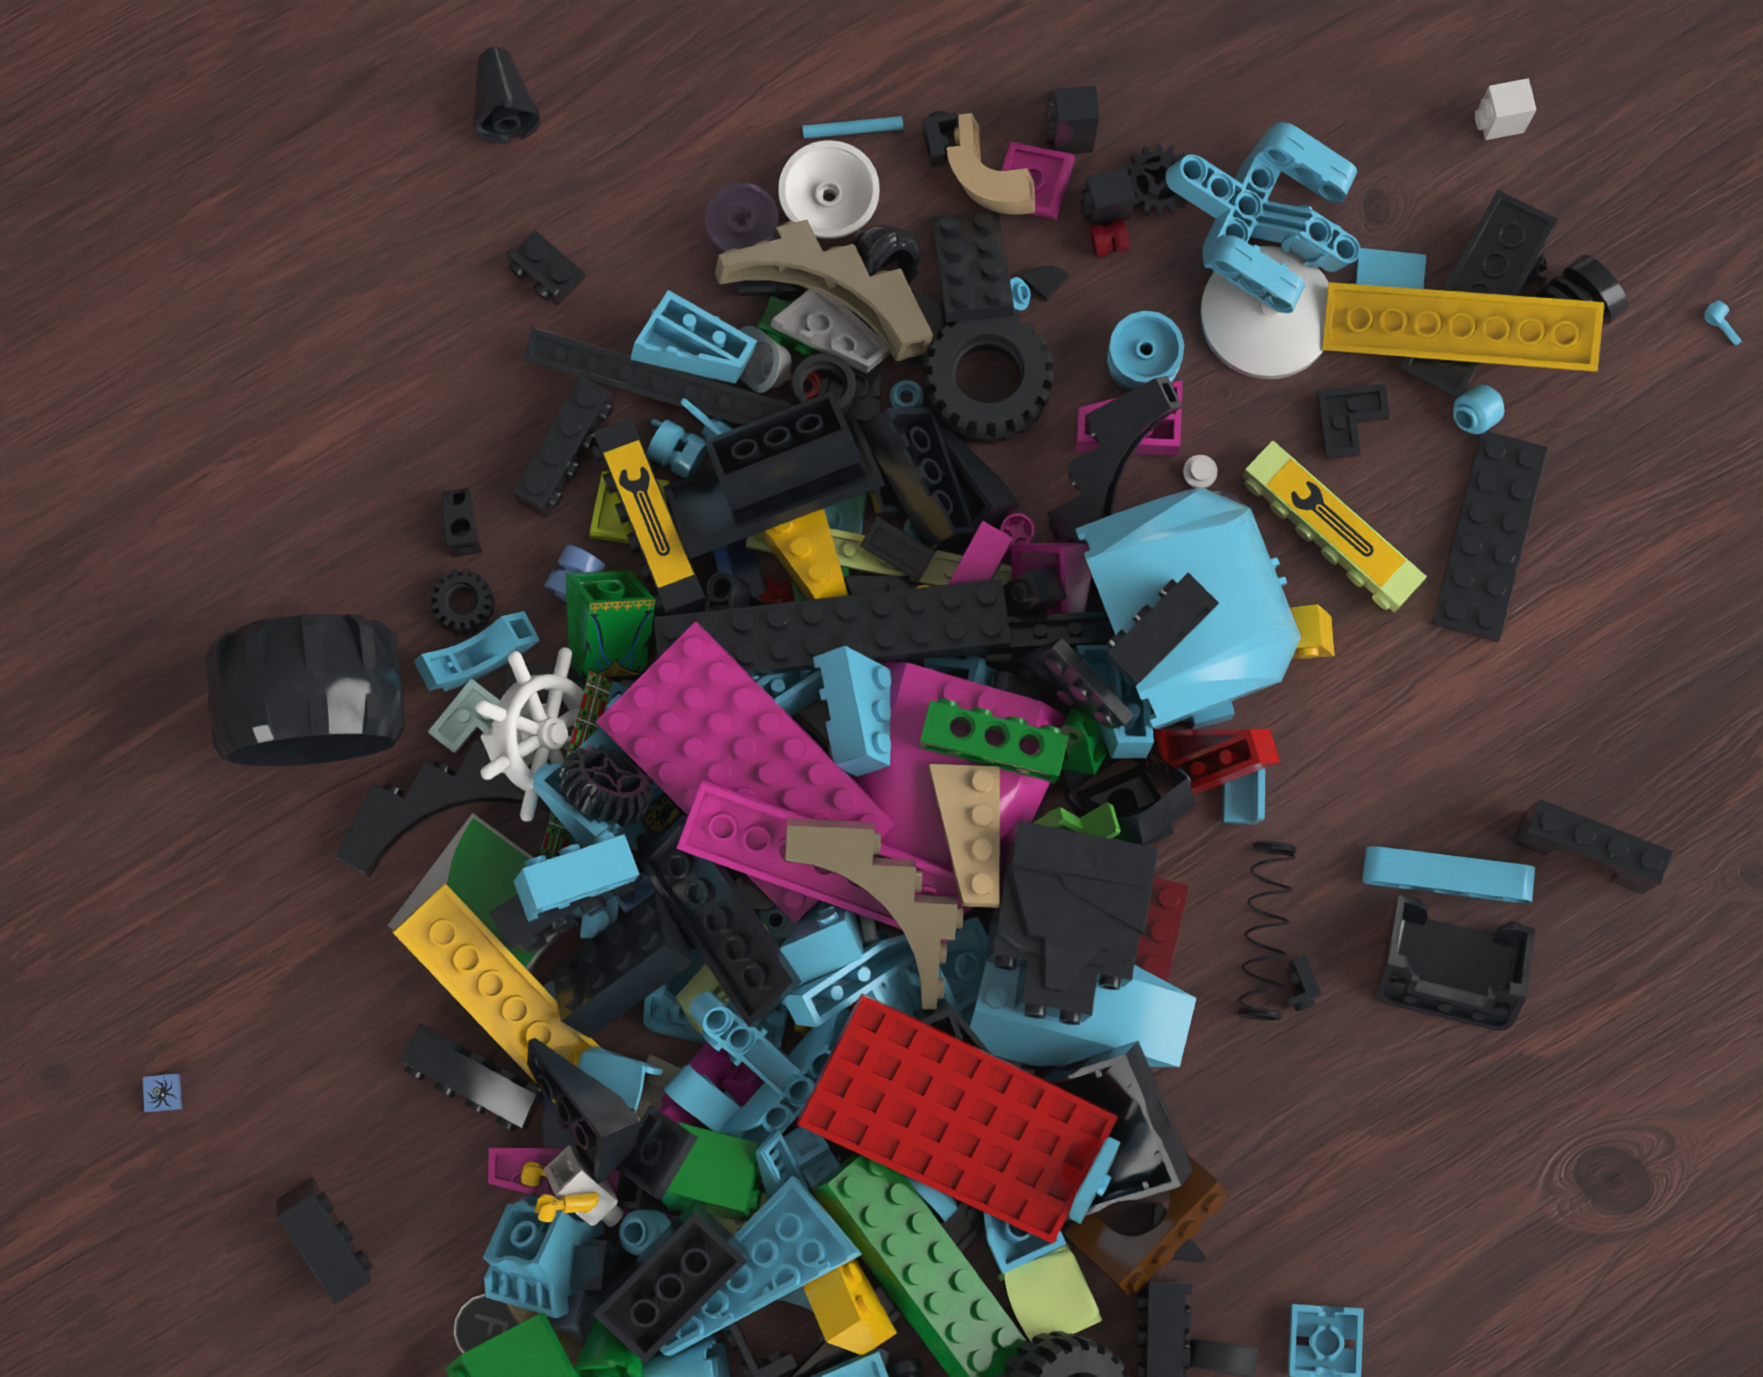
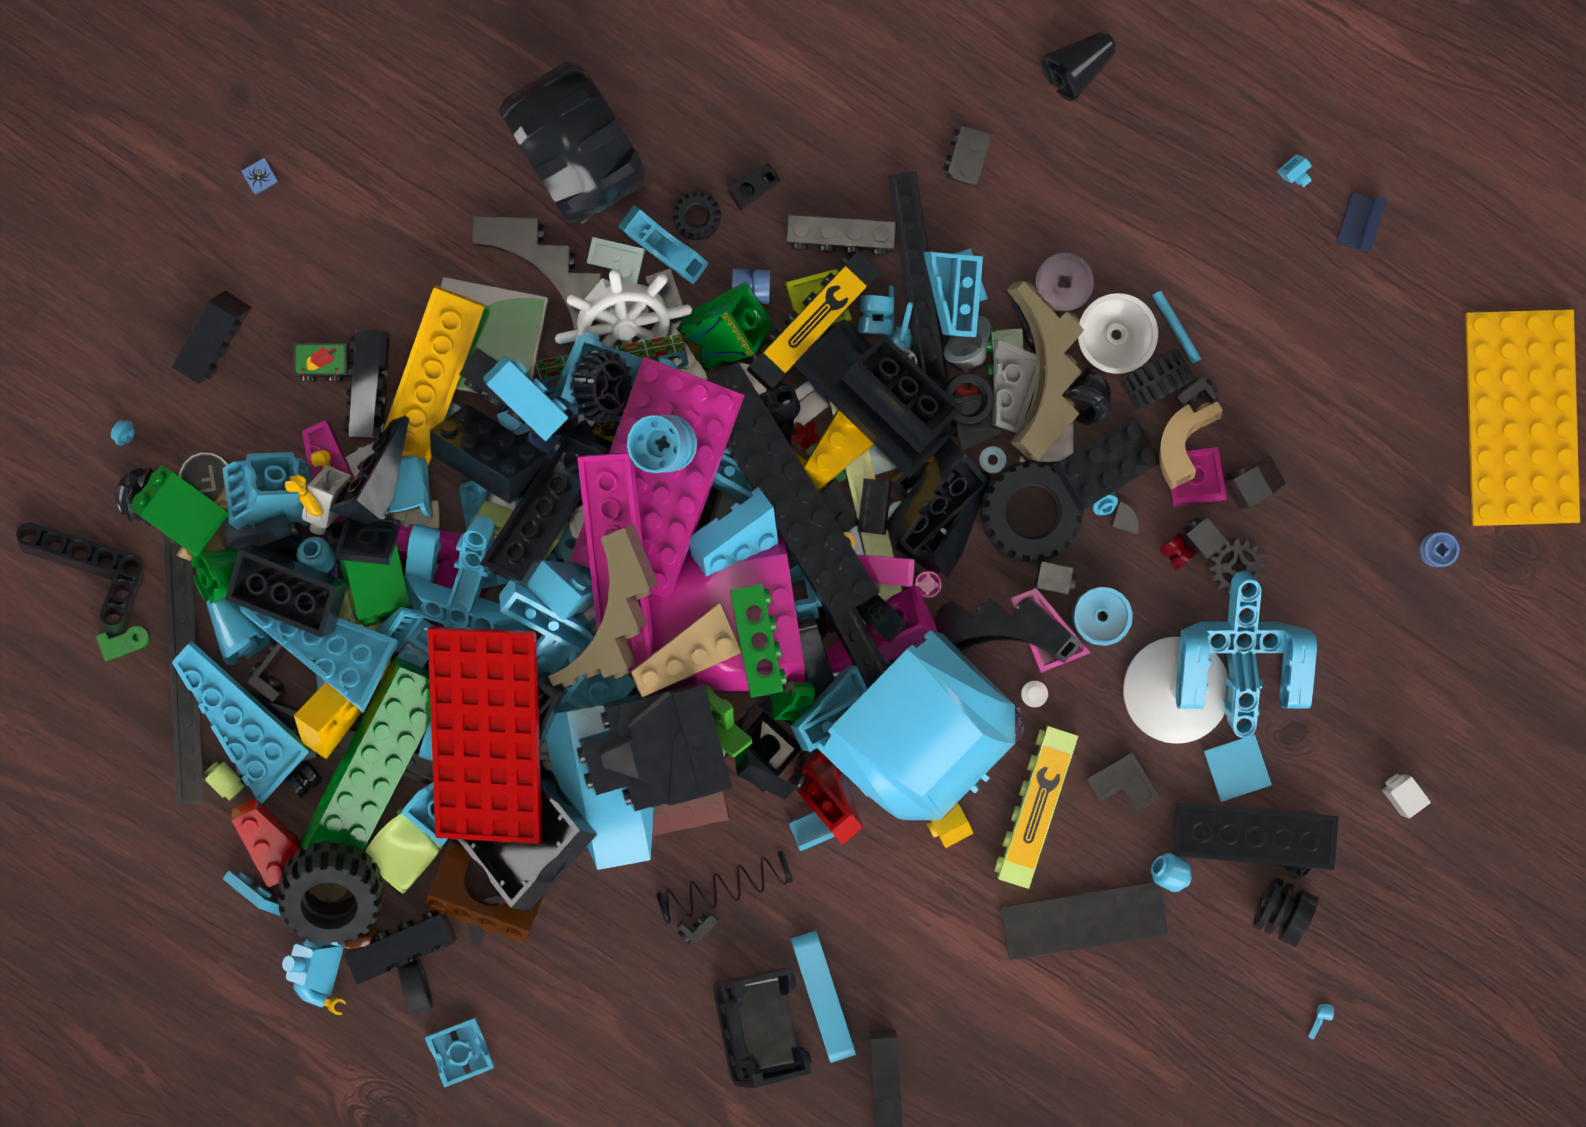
camera: 65 degrees right, 10 degrees up
(416, 1120) = (321, 360): none -> brick
(696, 755) = (648, 446): none -> medium azure wheel
(902, 167) = (1157, 378): none -> black tyre
(1065, 676) = (823, 677): black plate -> none
(1076, 384) = (1054, 578): none -> brick
(1095, 1181) = (489, 848): medium azure plate -> none
(1160, 628) = (878, 722): black wedge -> none
(1463, 326) = (1222, 835): yellow plate -> none

